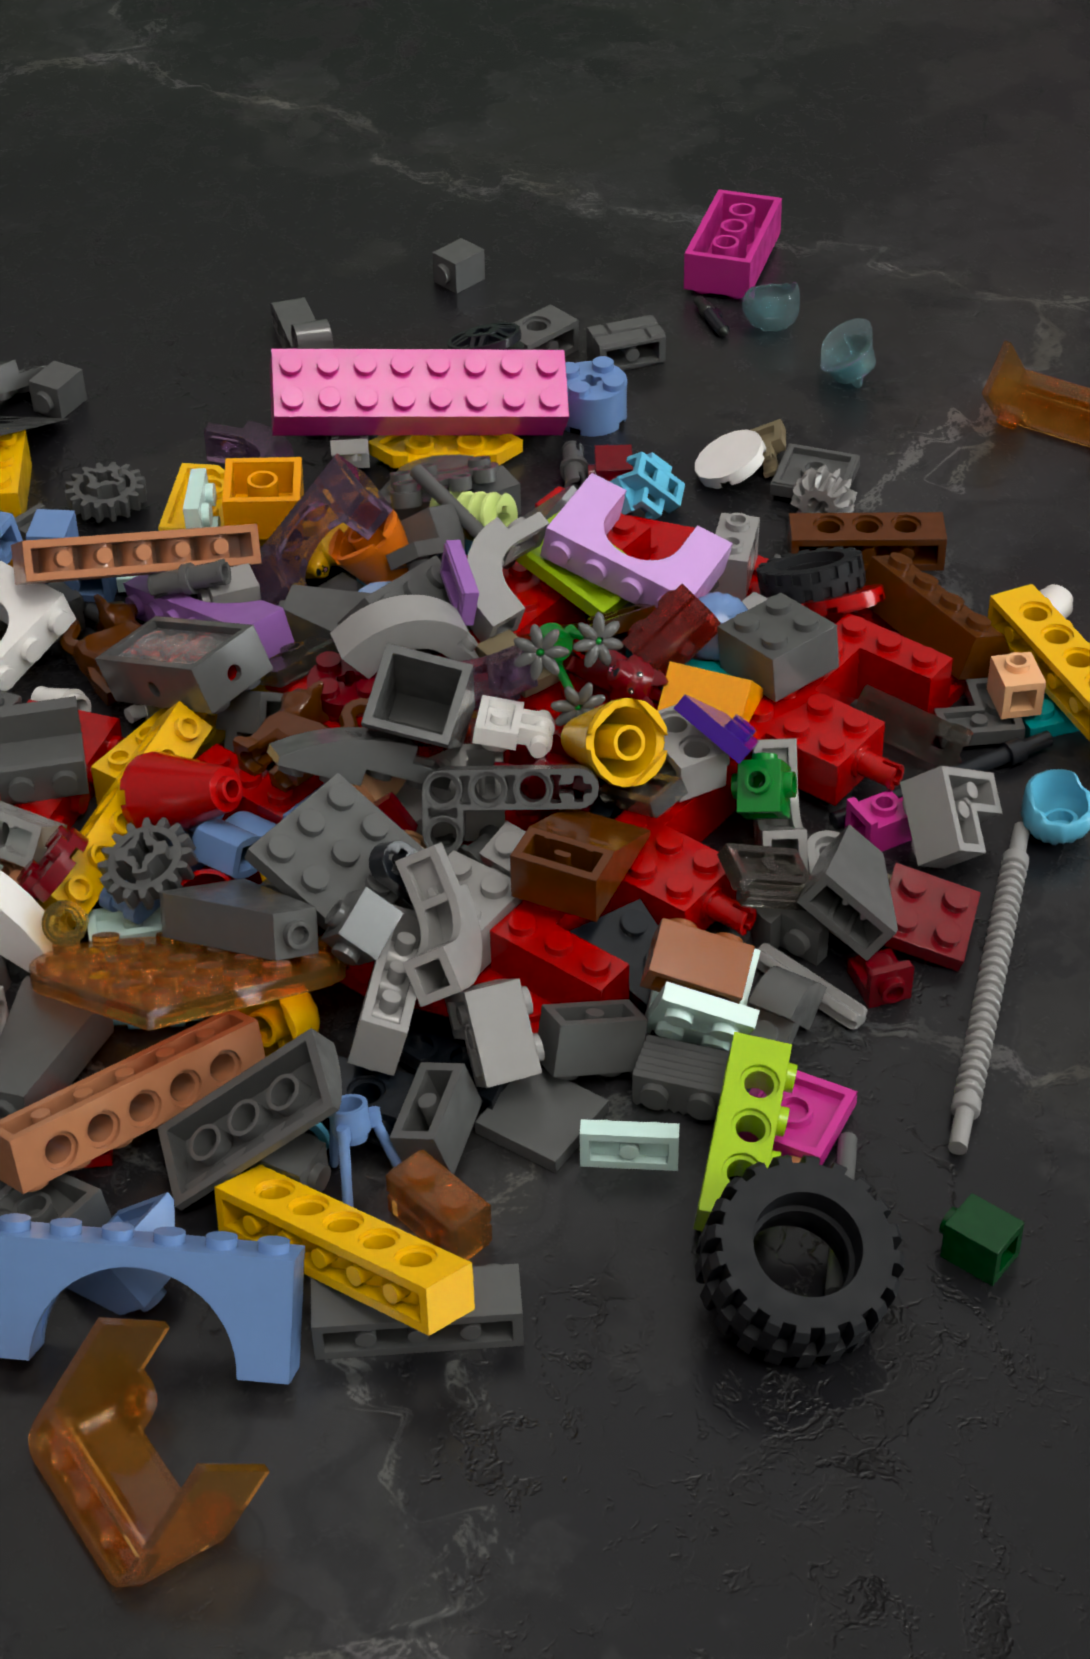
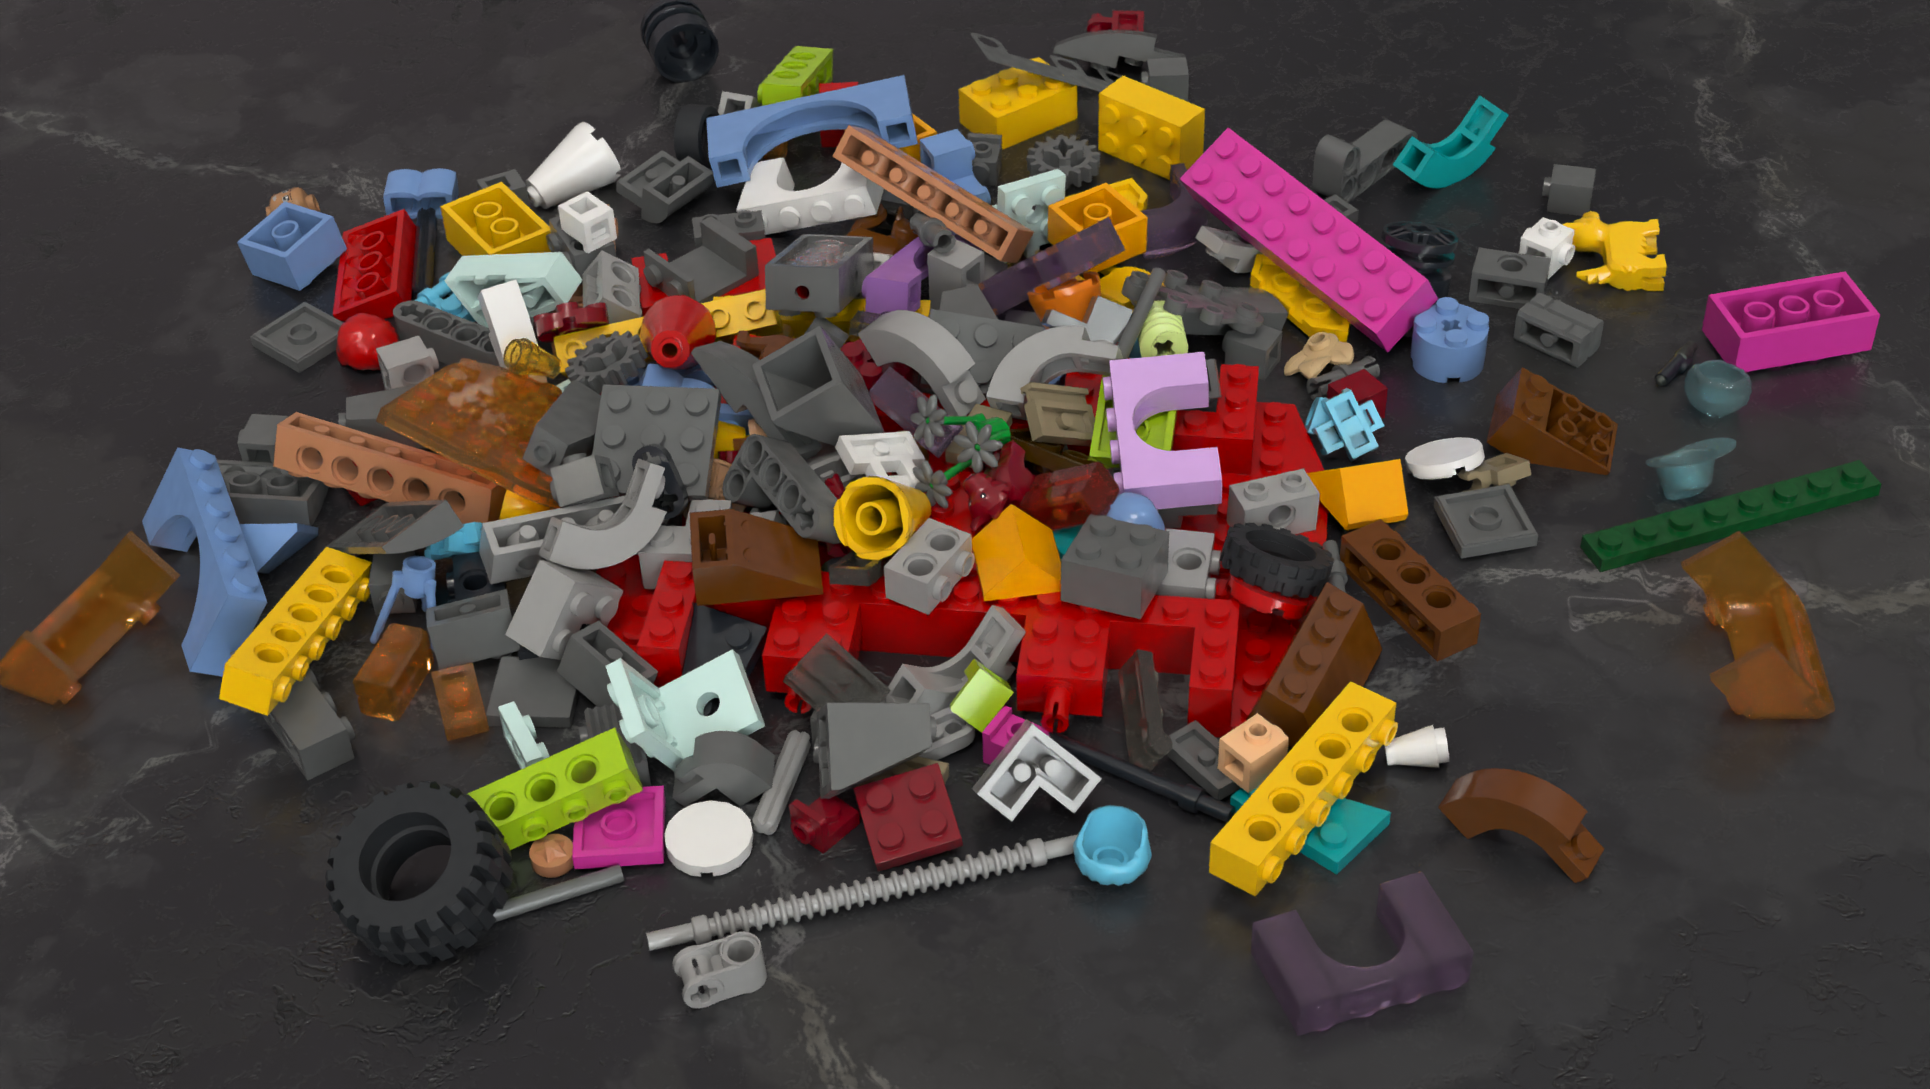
camera: 60 degrees right, 0 degrees up
(138, 418) = (1149, 127): none -> yellow brick
(350, 282) = (1459, 153): none -> teal arch
(459, 581) = (991, 353): medium lavender tile -> none
(518, 1174) = (460, 701): none -> clear orange plate
(521, 298) = (1549, 240): none -> white brick
(538, 466) = (1317, 353): none -> tan plate
(548, 603) = (1058, 414): none -> dark tan plate
(561, 275) = (1623, 252): none -> yellow animal
(697, 960) = (666, 682): brick -> none
(729, 497) = (1363, 493): none -> light orange slope
(729, 734) = (949, 570): dark purple wing -> none
(734, 397) = (1550, 426): none -> reddish brown slope
(764, 787) = (948, 640): green brick -> none
(823, 492) = (1434, 532): light grey gear -> none
(828, 804) = (980, 696): none -> lime panel
(849, 1057) = (709, 838): none -> white tile
(904, 372) = (1728, 515): none -> dark green plate
(981, 1238) = (543, 990): dark green brick -> none
(1033, 1104) = (724, 969): none -> light grey piece

